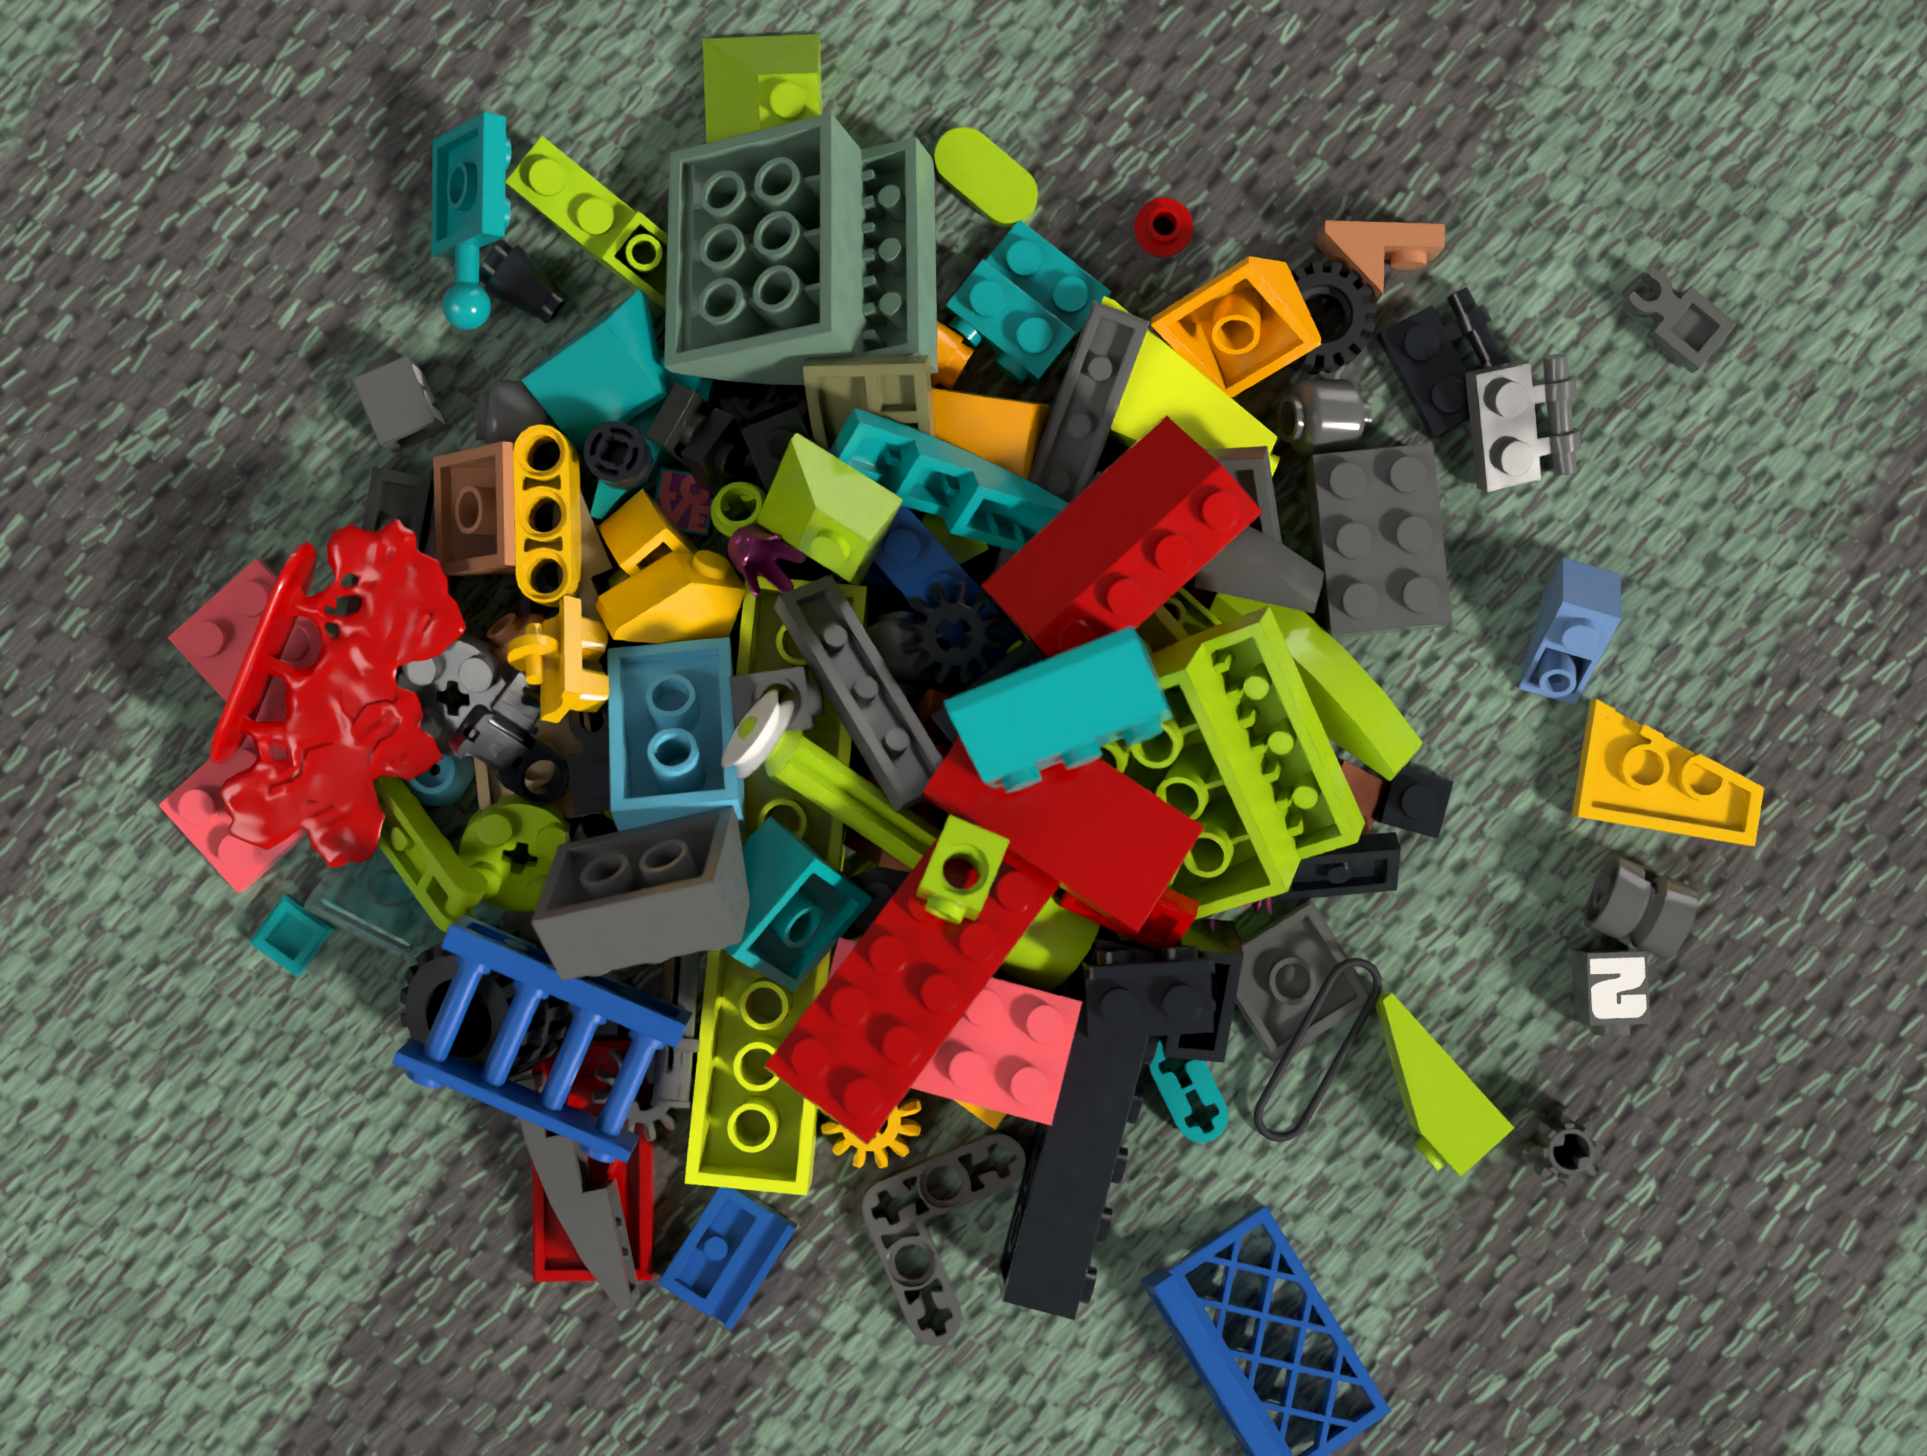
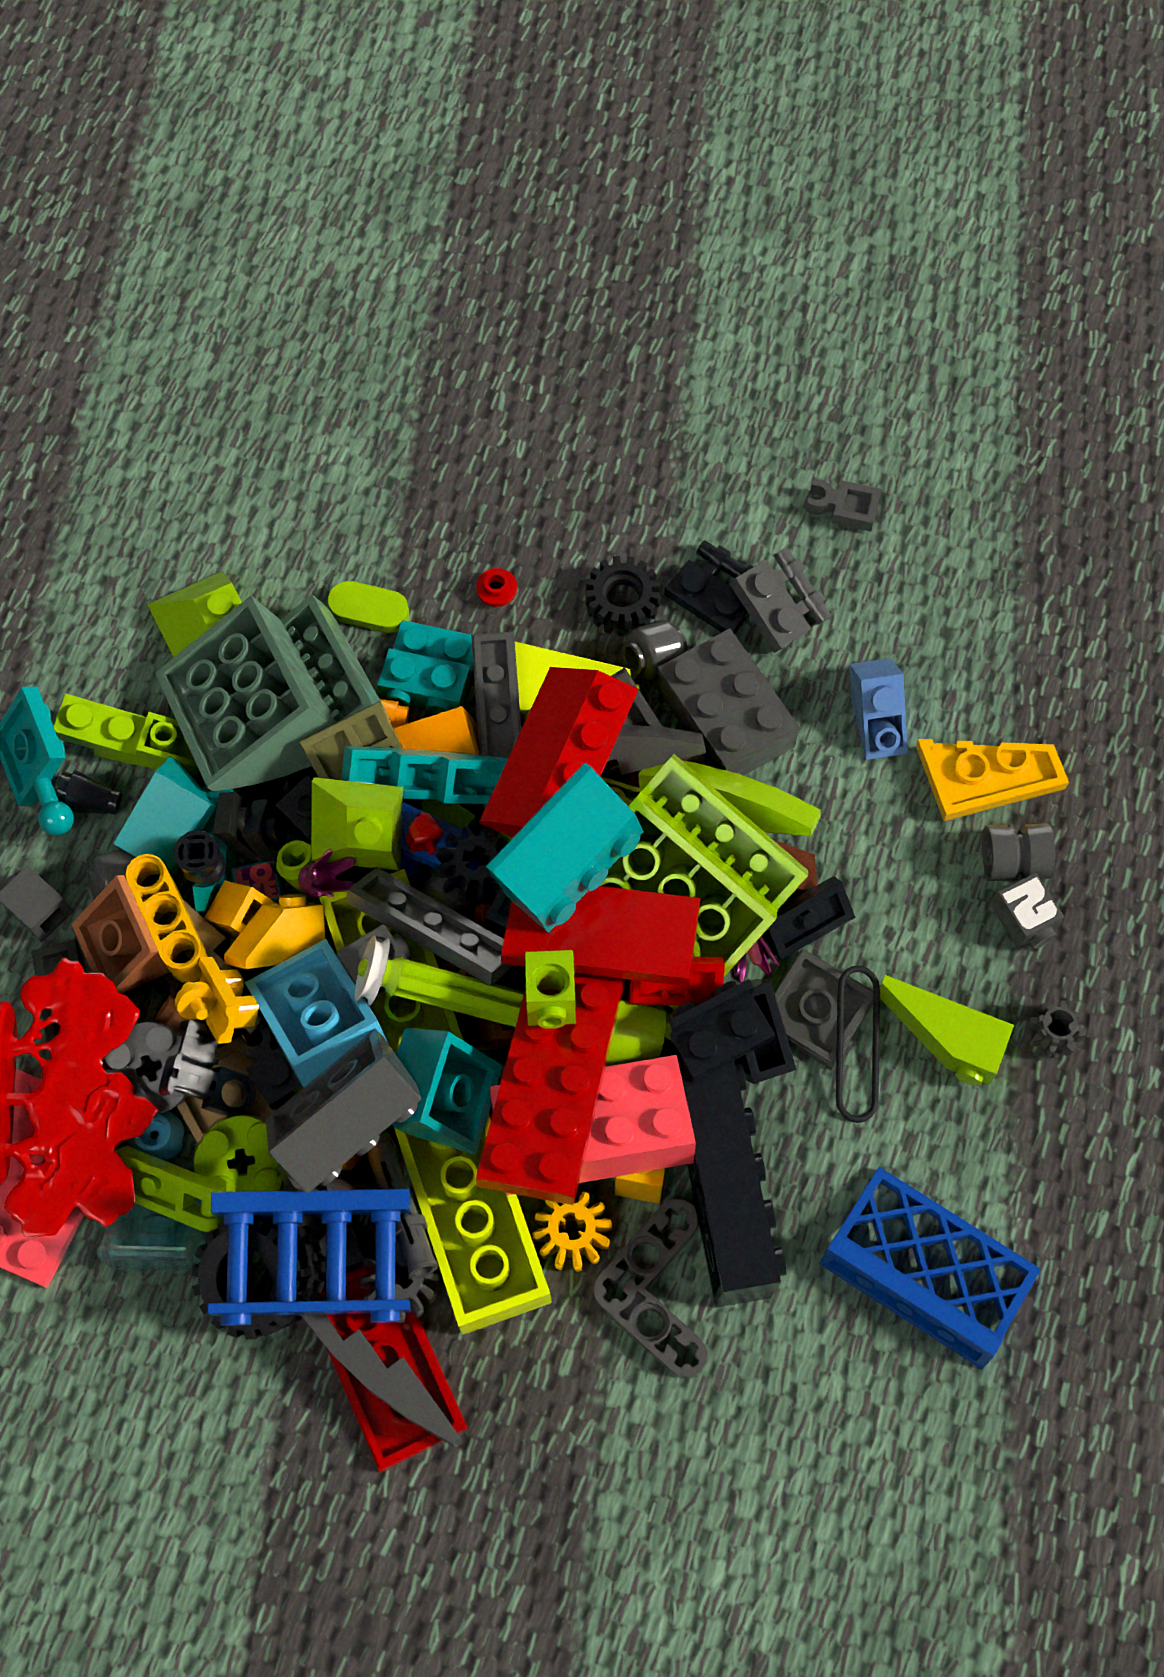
camera: 25 degrees left, 20 degrees down
(292, 935) = (96, 1300): teal tile -> none
(727, 1254) = (514, 1380): blue plate -> none
(906, 564) = (424, 834): none -> red piece
(1177, 1103) = (790, 1103): teal beam -> none
(1241, 324) = (571, 612): light orange slope -> none
(1367, 244) = (637, 536): nougat slope -> none
(1416, 802) = (838, 856): black plate -> none

